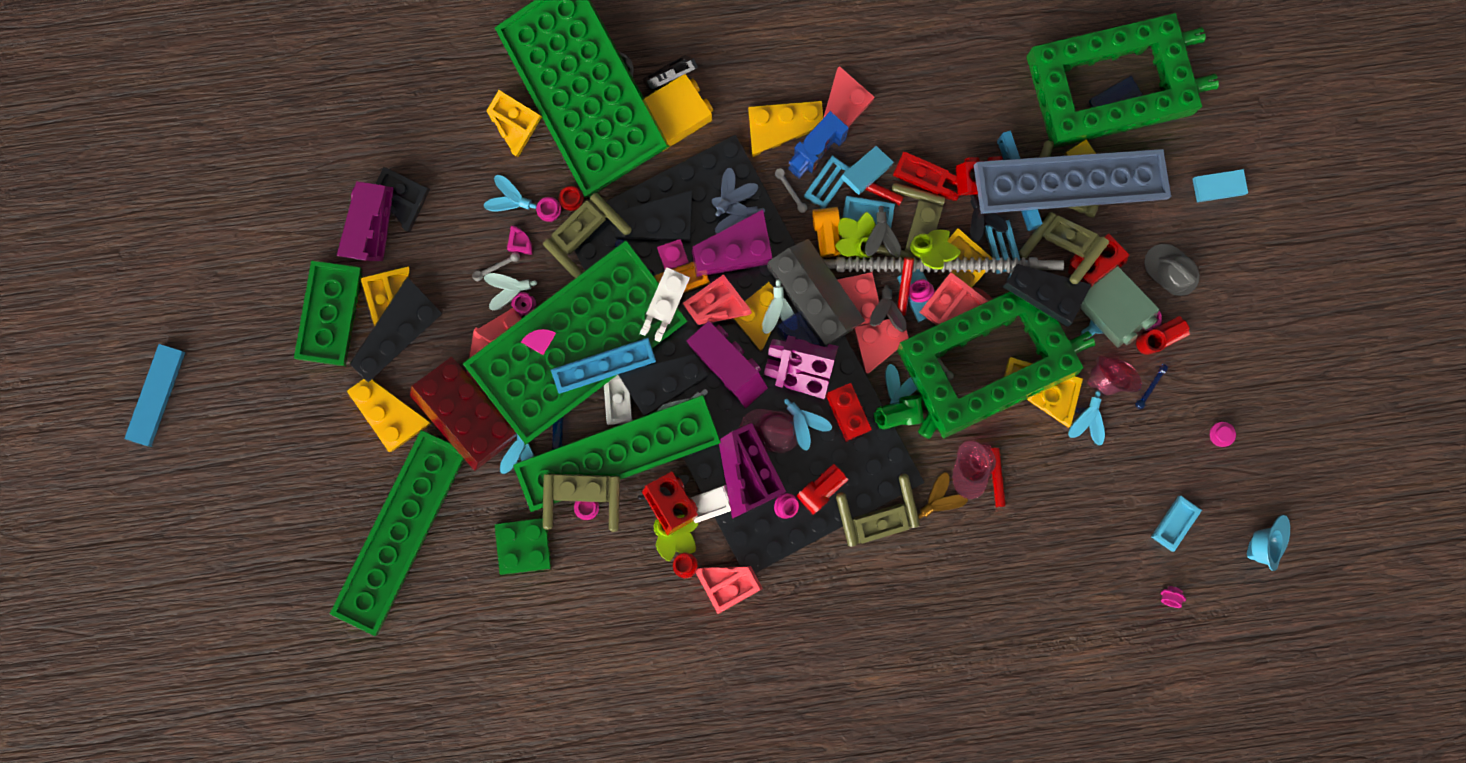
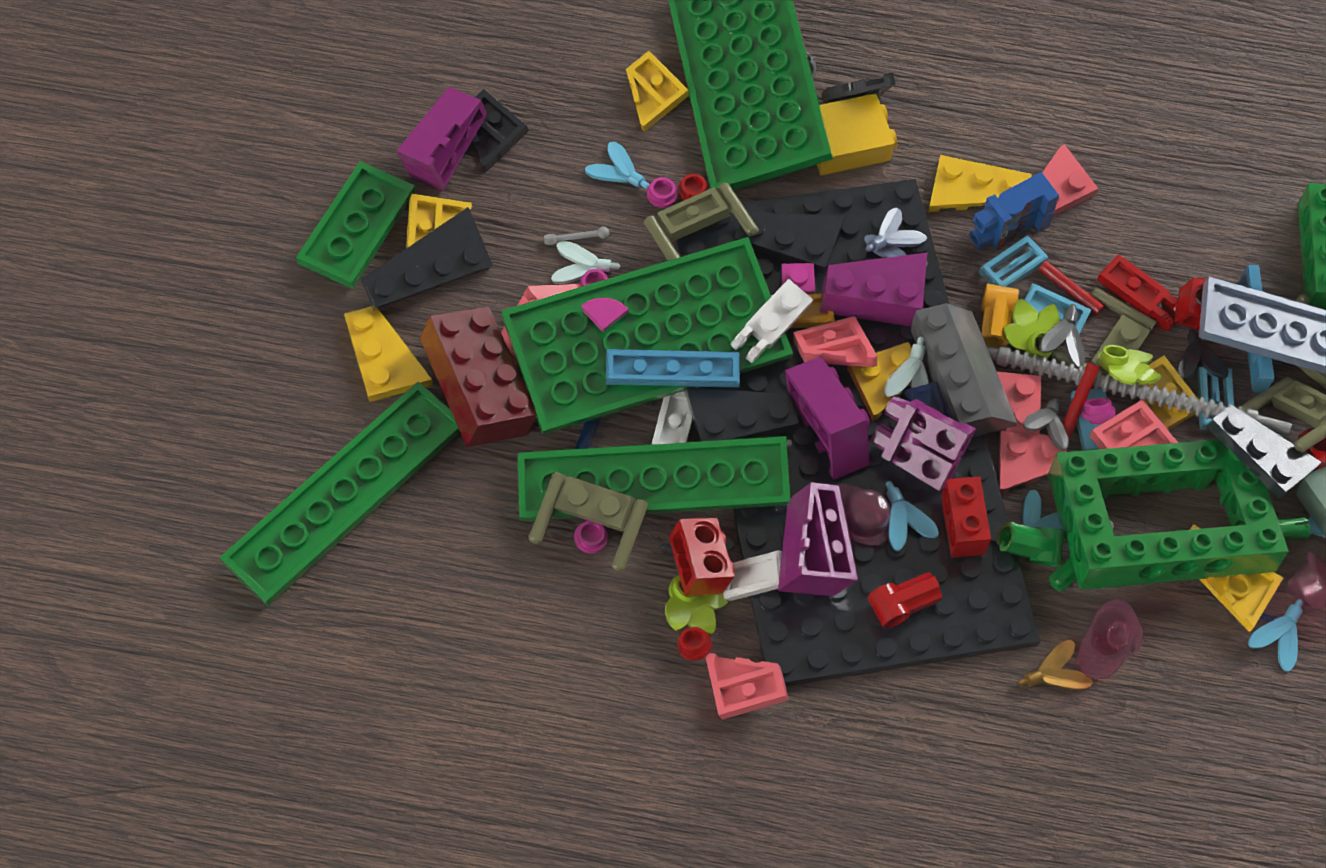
camera: 15 degrees right, 20 degrees down
(154, 395) = (112, 252): dark azure tile -> none
(516, 451) = (529, 443): medium azure piece -> none
(519, 242) = (614, 218): dark pink tile -> none
(522, 546) = (492, 559): green plate -> none
(780, 174) = (956, 239): light grey hinge -> none
(786, 506) = (851, 605): dark pink plate -> none
(867, 170) = (1067, 261): medium azure tile -> none
(880, 522) = (969, 670): olive plate -> none
(998, 480) = (1138, 671): red piece -> none

